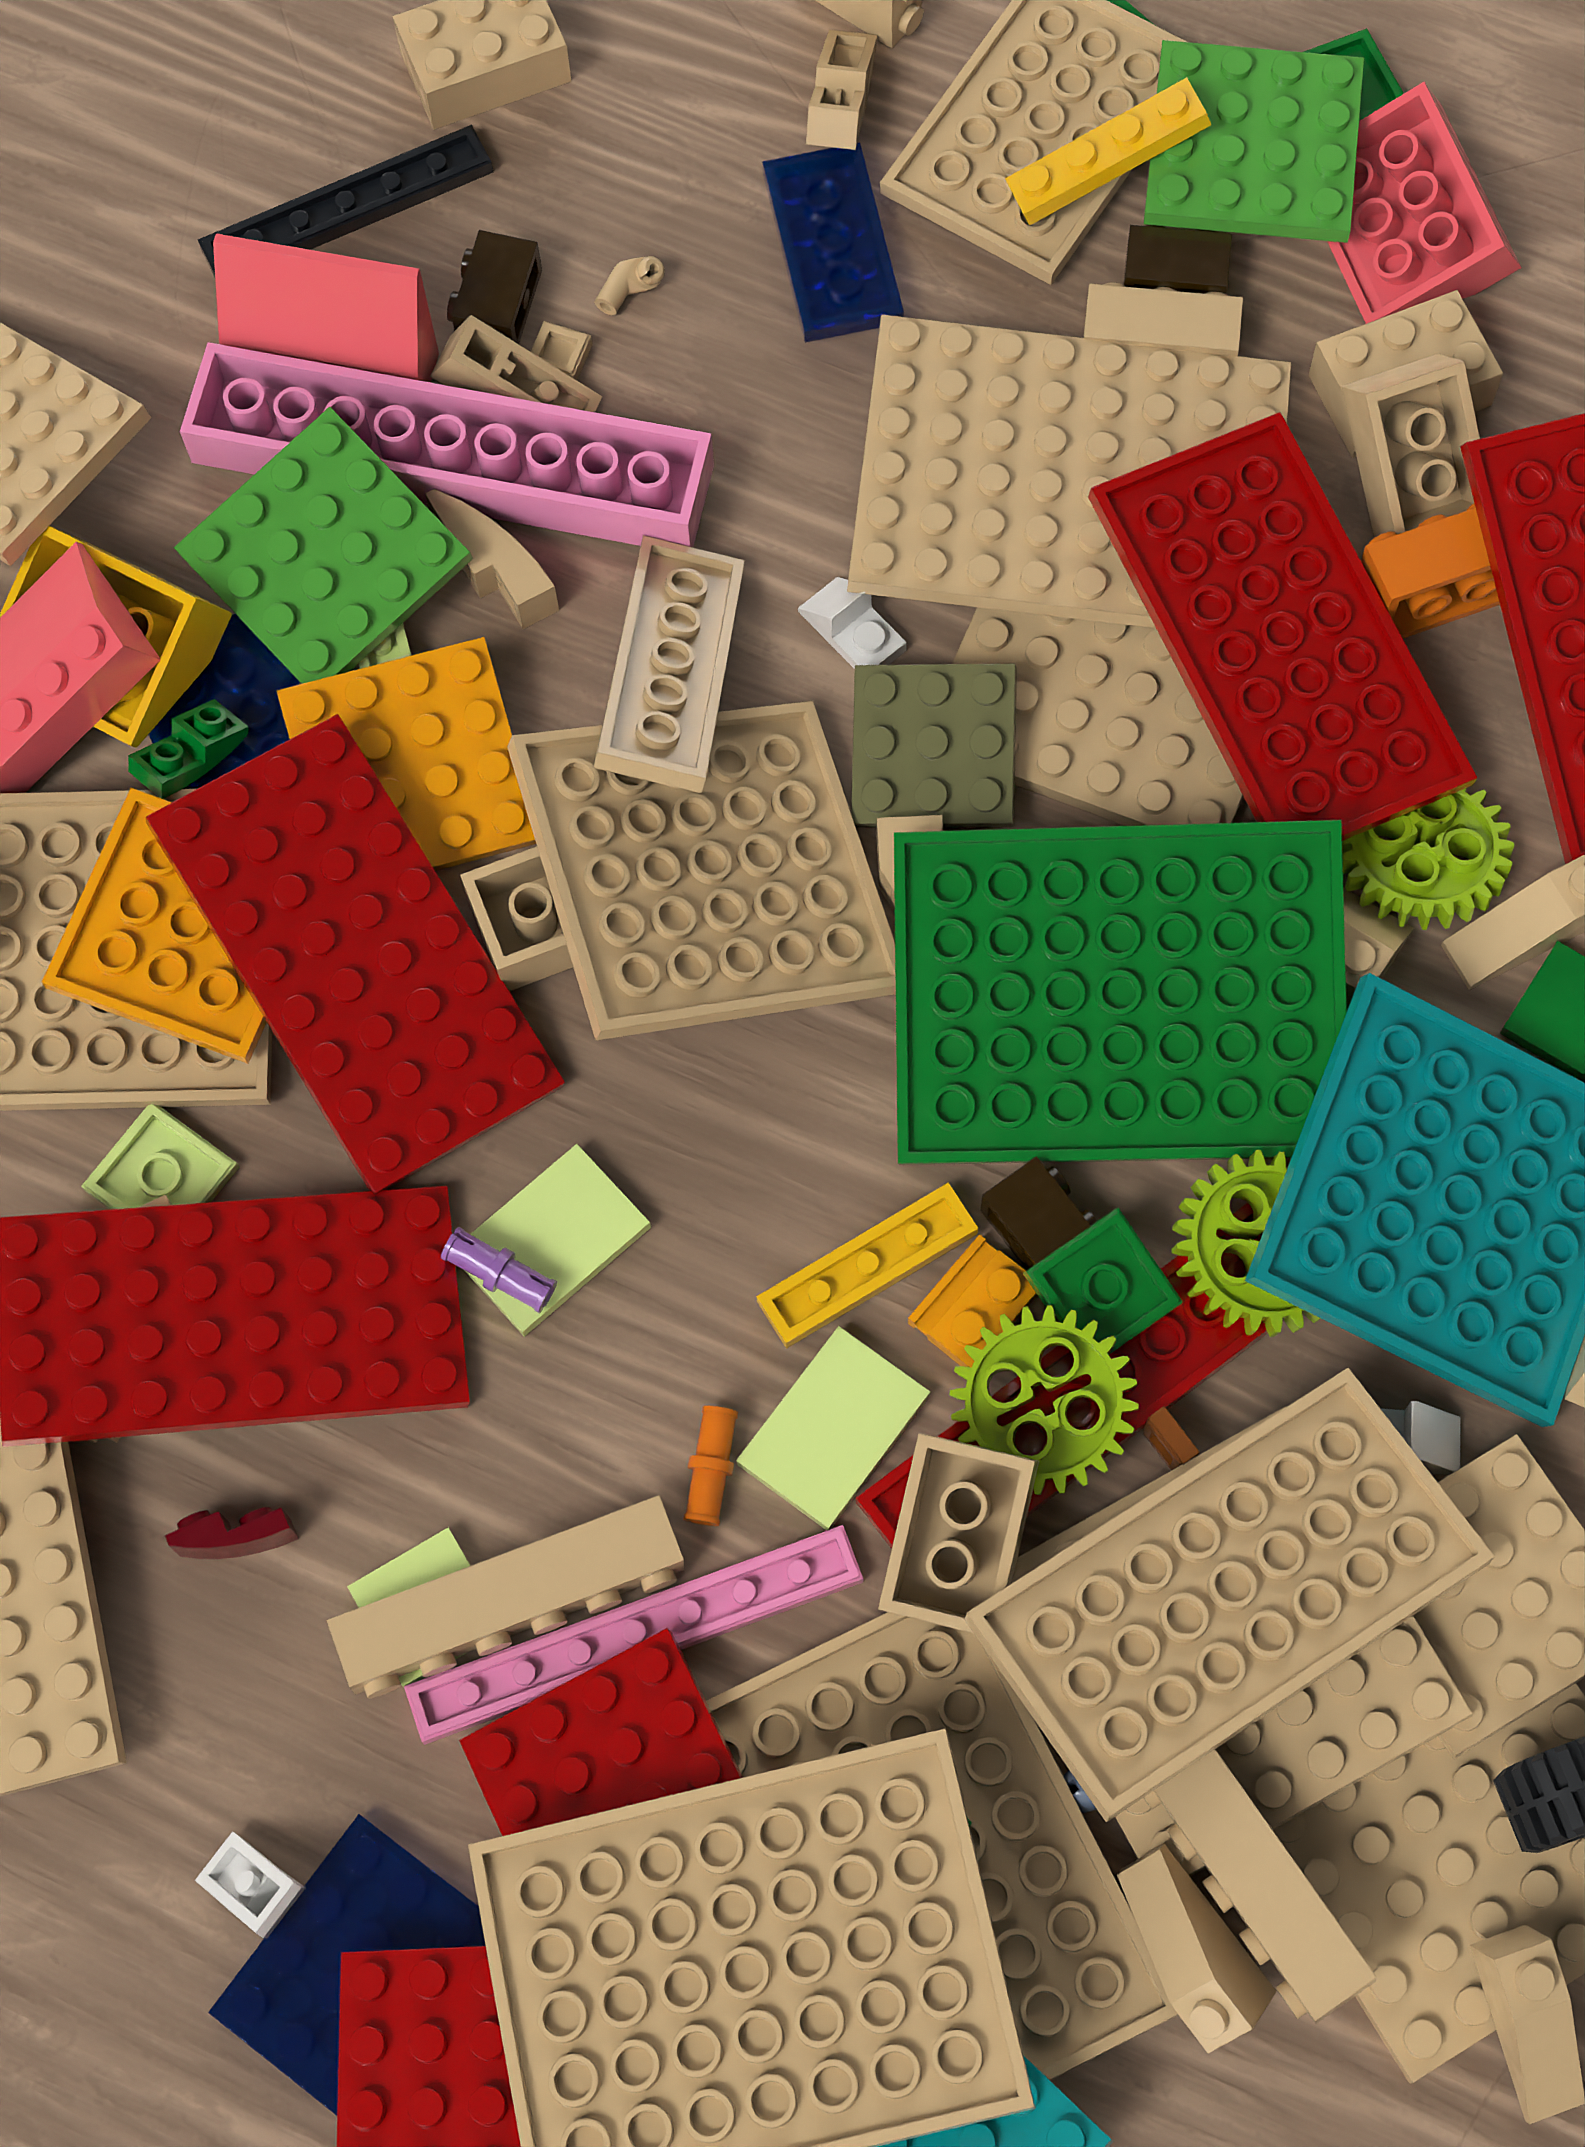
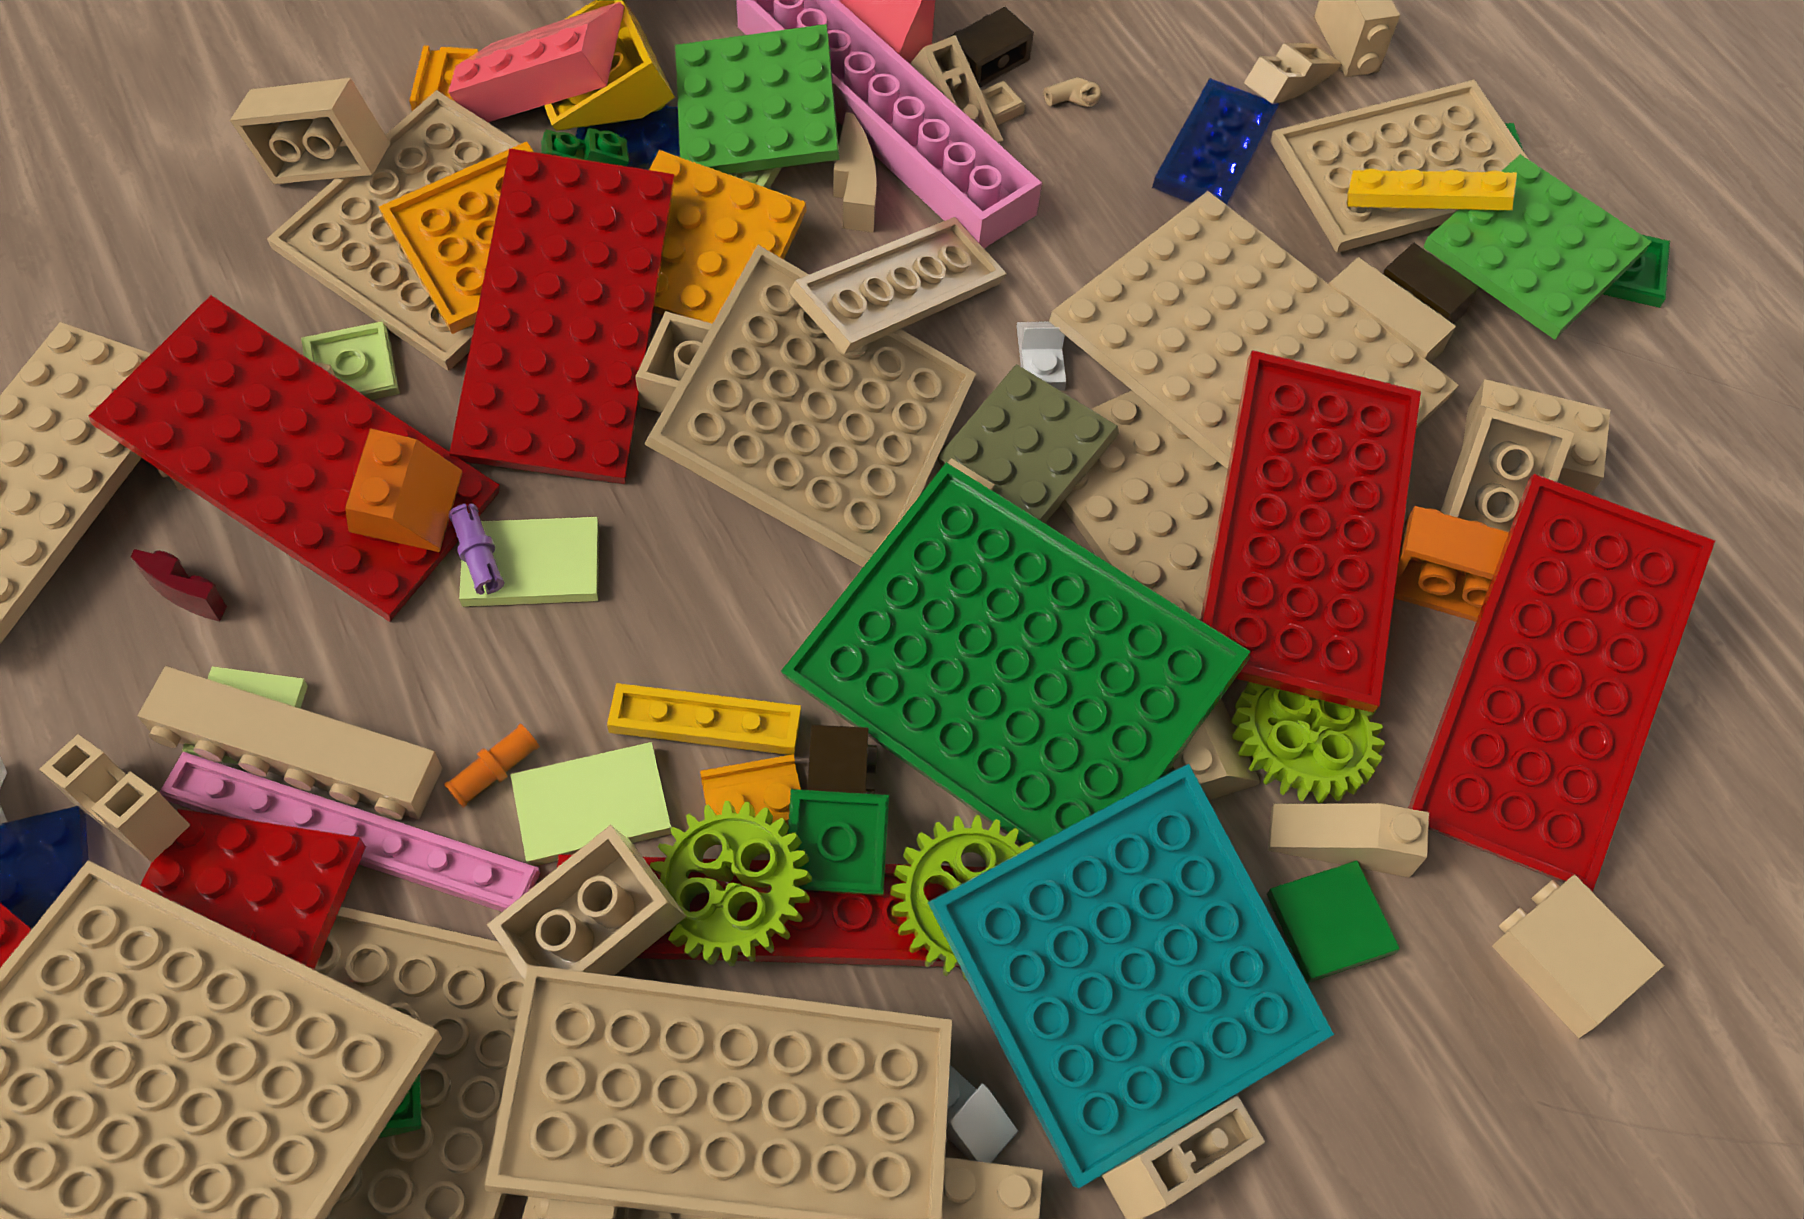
camera: 30 degrees right, 10 degrees down
(381, 1271) = (402, 492): none -> orange slope
(389, 1780) = (114, 799): none -> tan arch
(1169, 1439) = (797, 975): dark orange tile -> none
(1417, 213) = (1622, 354): coral slope -> none

